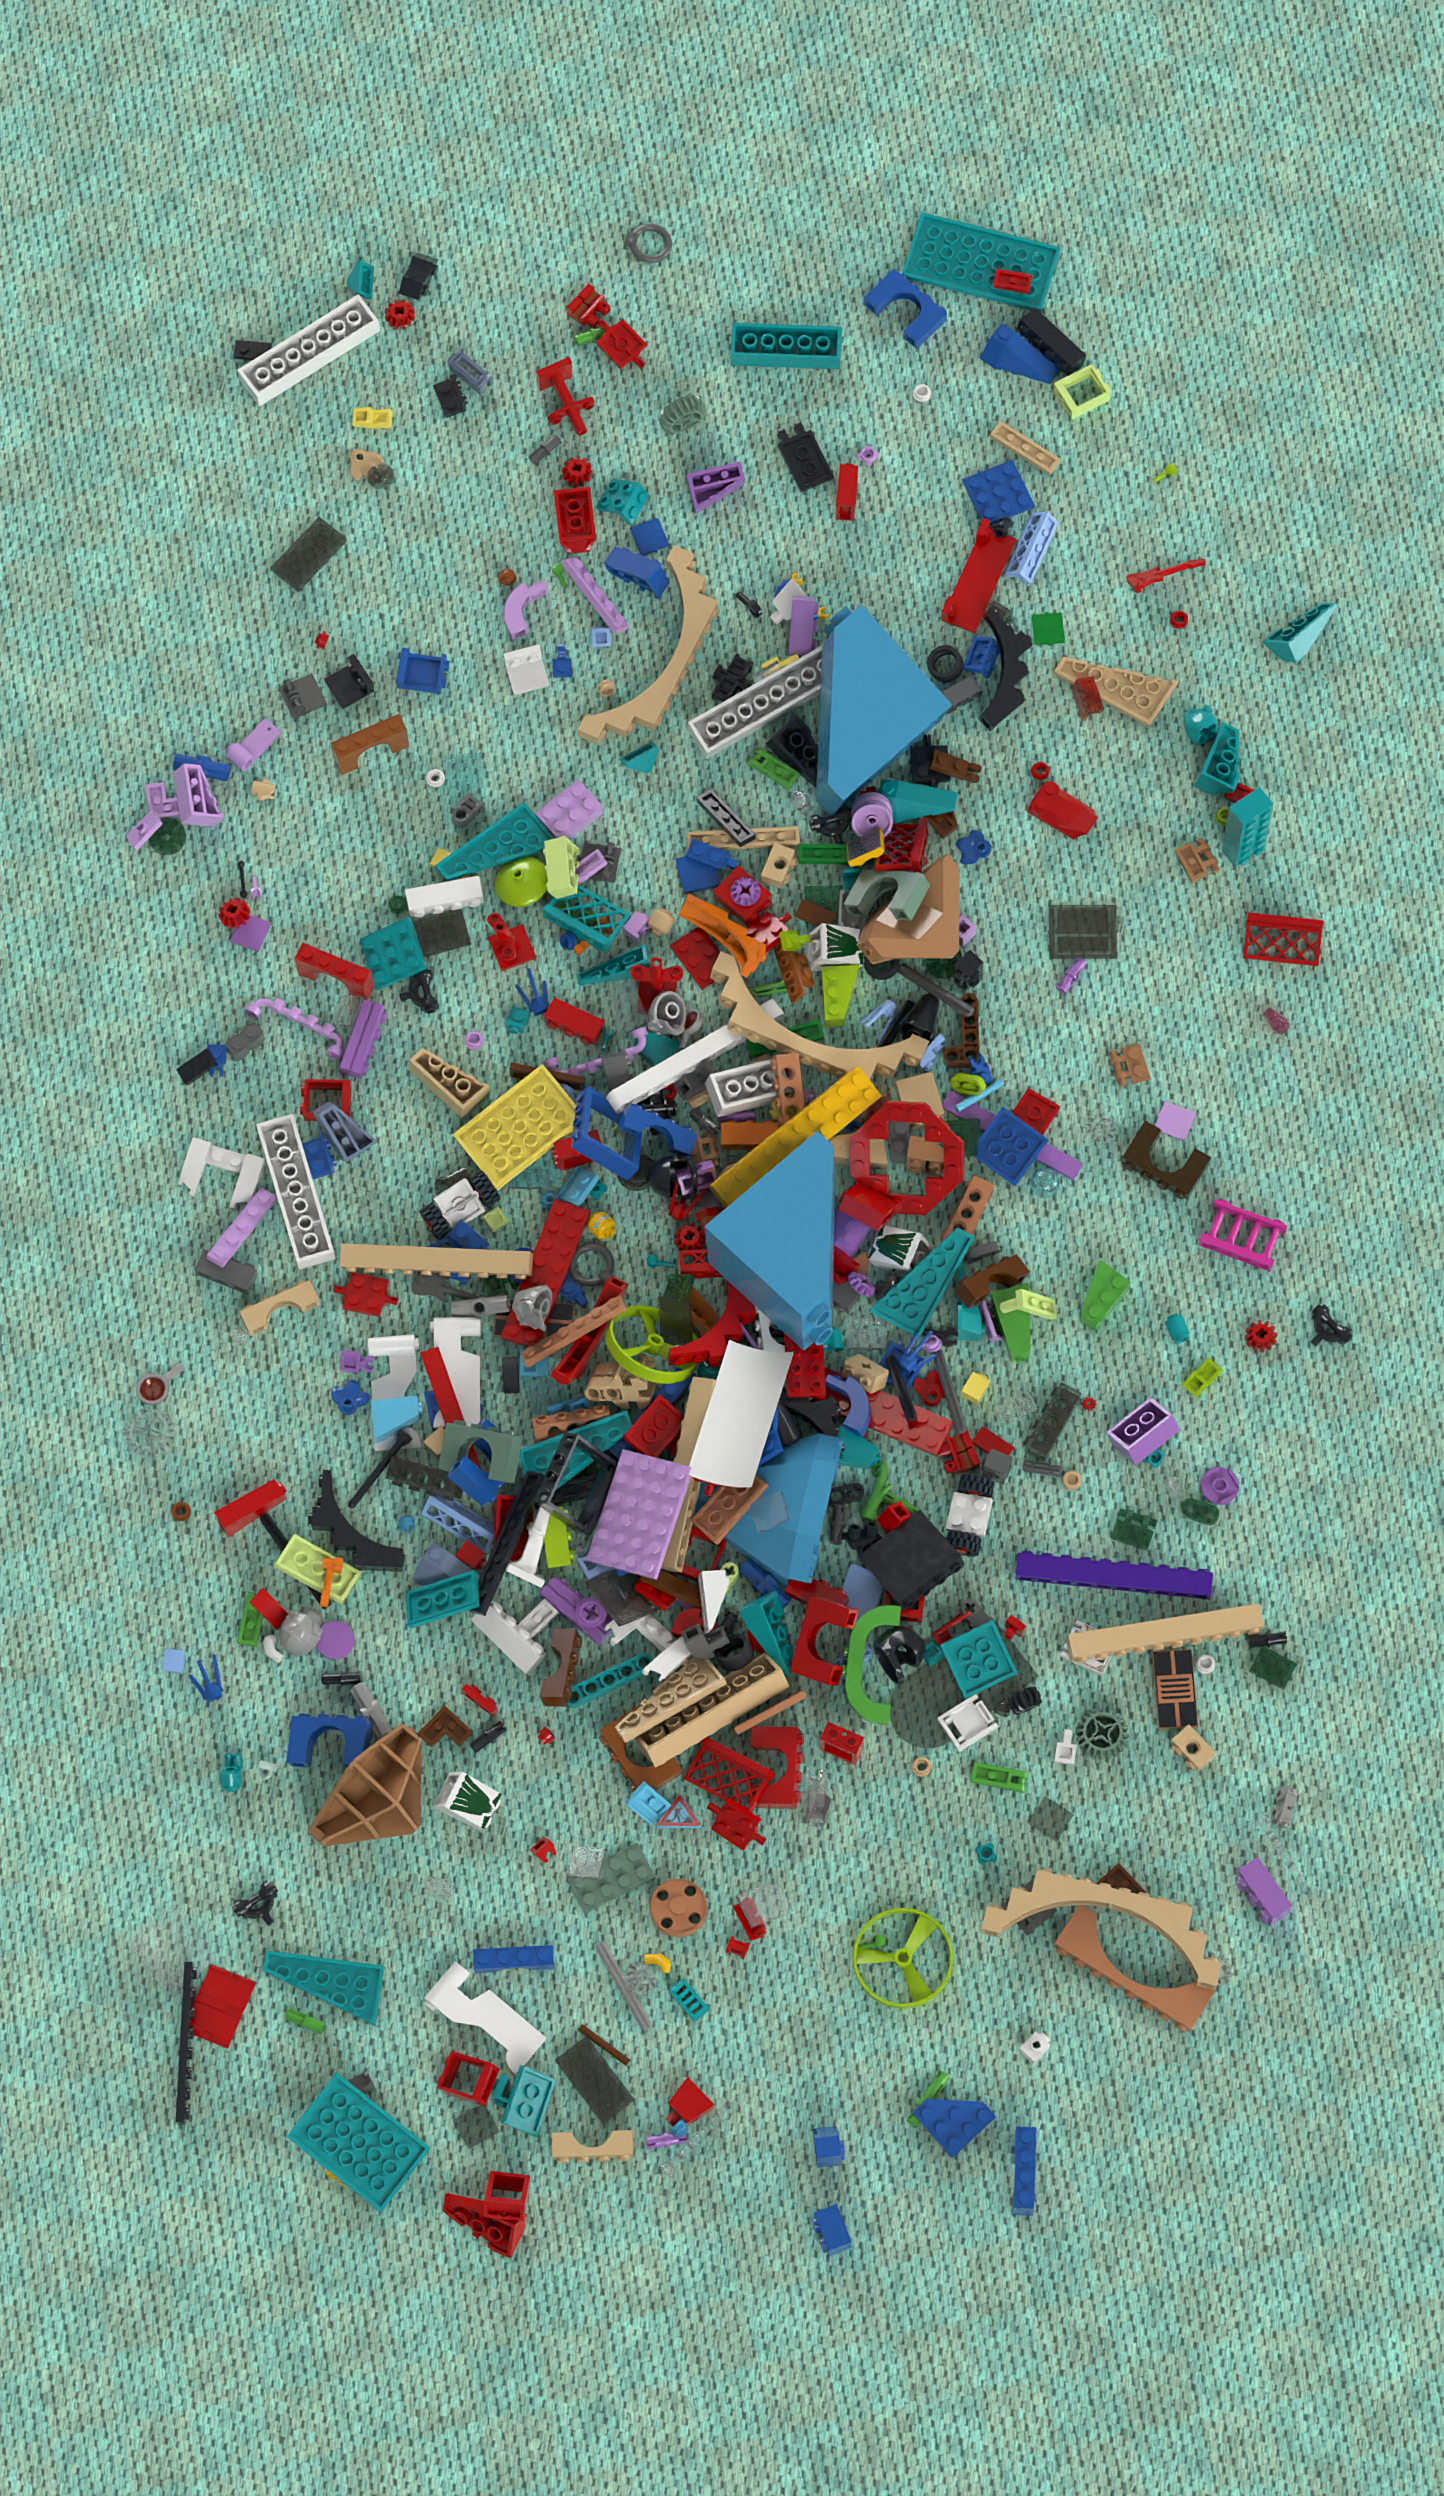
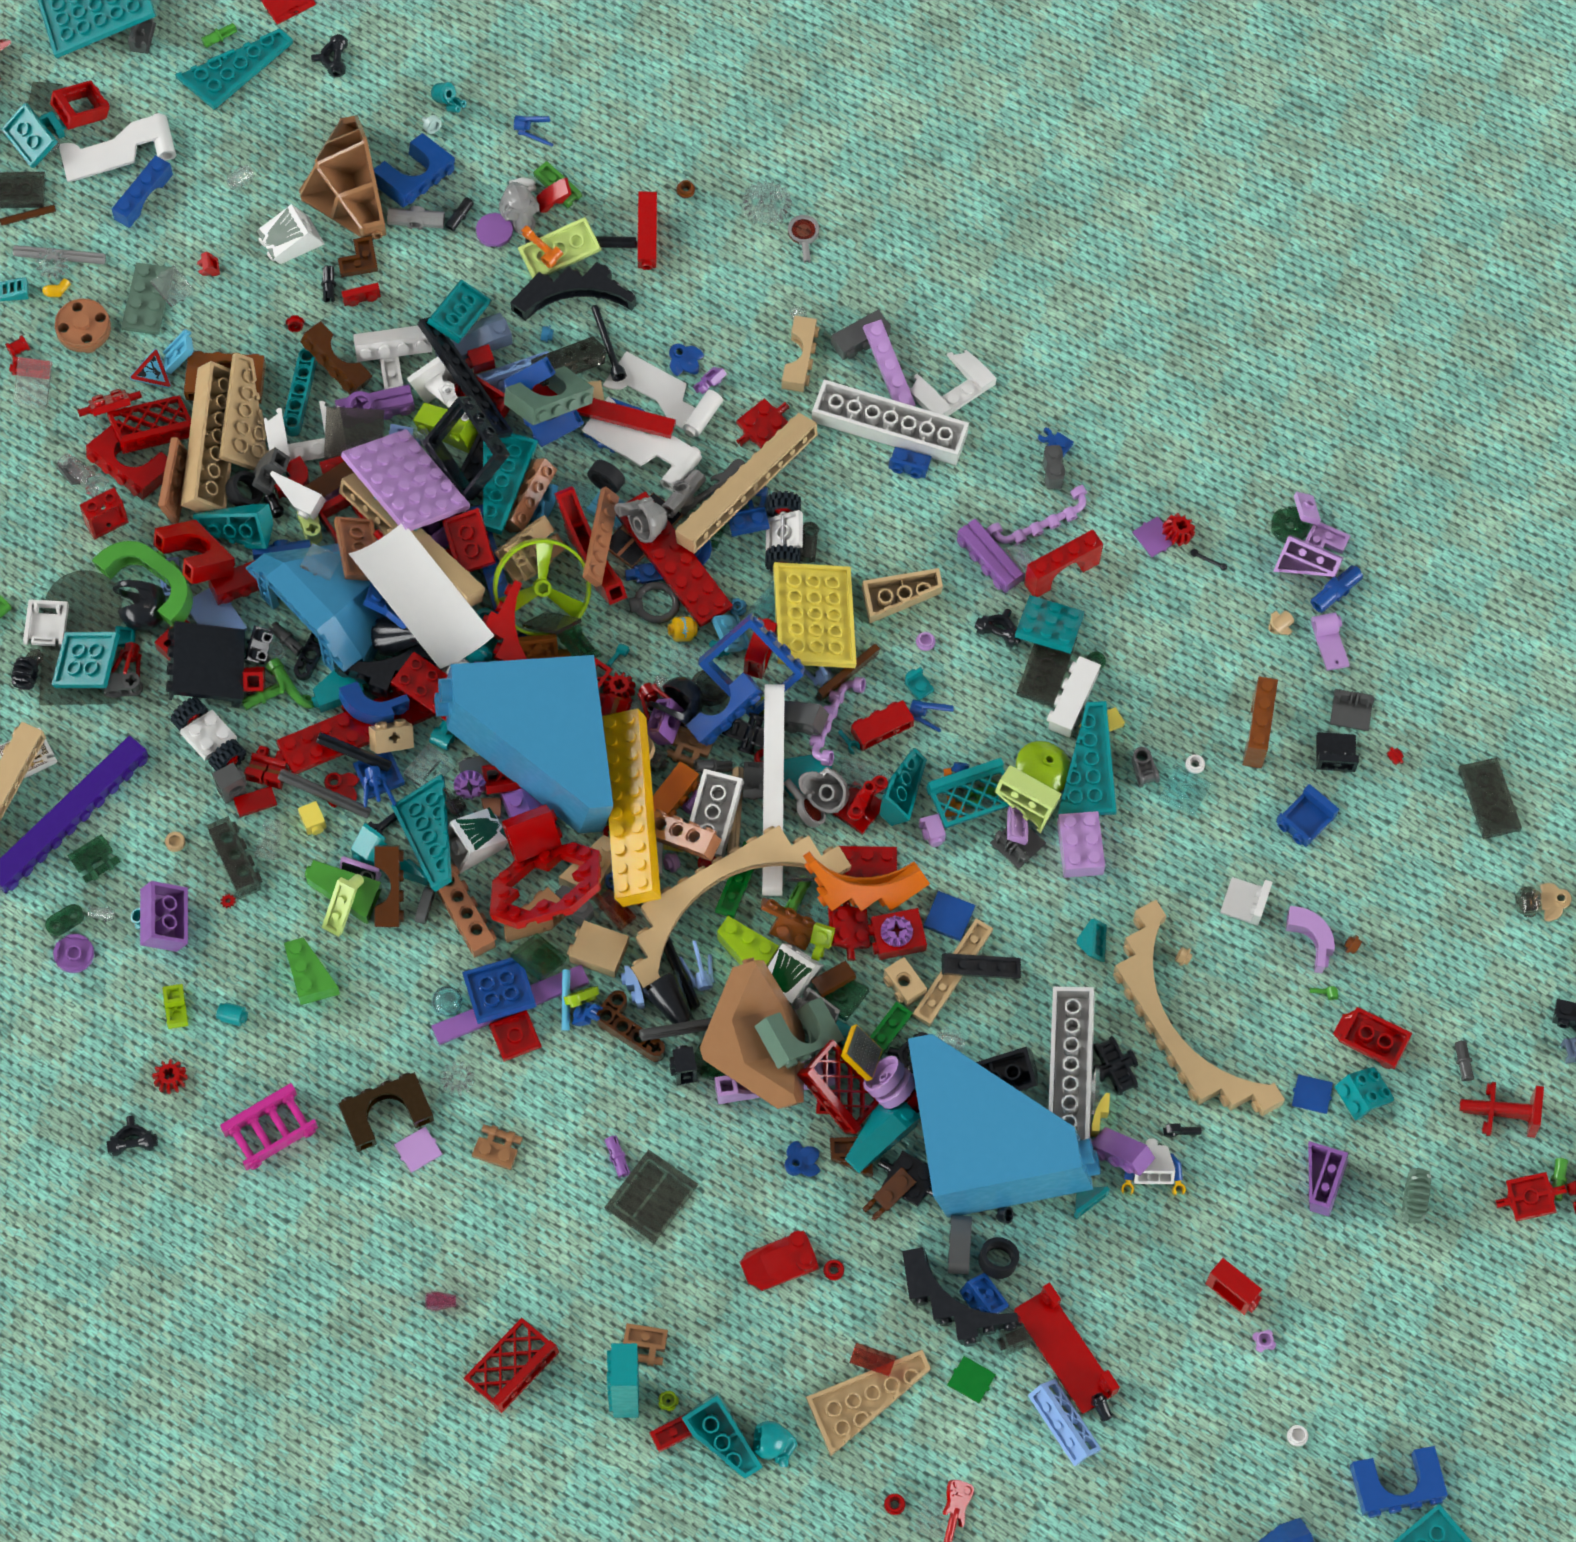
camera: 120 degrees right, 5 degrees down
(173, 1660) = (569, 114): light blue slope -> none
(197, 1067) = (1058, 421): black plate -> none
(255, 891) = (1189, 560): lavender hand -> none
(324, 1084) = (945, 510): red window -> none
(342, 1132) = (913, 482): sand blue wedge -> none
(394, 1415) = (642, 375): medium azure slope -> none
(495, 1219) = (753, 558): yellowish green tile -> none
(509, 945) = (991, 714): red piece -> none
(561, 665) = (1232, 935): blue plate -> none
(583, 468) = (1421, 1079): red gear -> none
(595, 595) = (1282, 1005): lavender plate -> none
(601, 637) = (1239, 987): light blue slope -> none
(637, 569) = (1280, 1054): blue wedge -> none
(660, 922) = (923, 852): tan head -> none
(710, 856) = (954, 931): blue hinge -> none
(773, 768) = (1002, 1042): bright green plate -> none
(786, 346) = (1429, 1340): teal brick -> none
(804, 458) = (1301, 1281): black tile -> none
(921, 1760) = (41, 563): tan plate -> none
(932, 1344) = (378, 811): lavender plate -> none
(998, 492) = (1142, 1432): blue plate -> none
(1014, 1627) = (90, 710): red tile -> none
(1025, 448) = (1172, 1489): tan plate -> none
(1041, 1468) = (200, 827): dark grey axle -> none

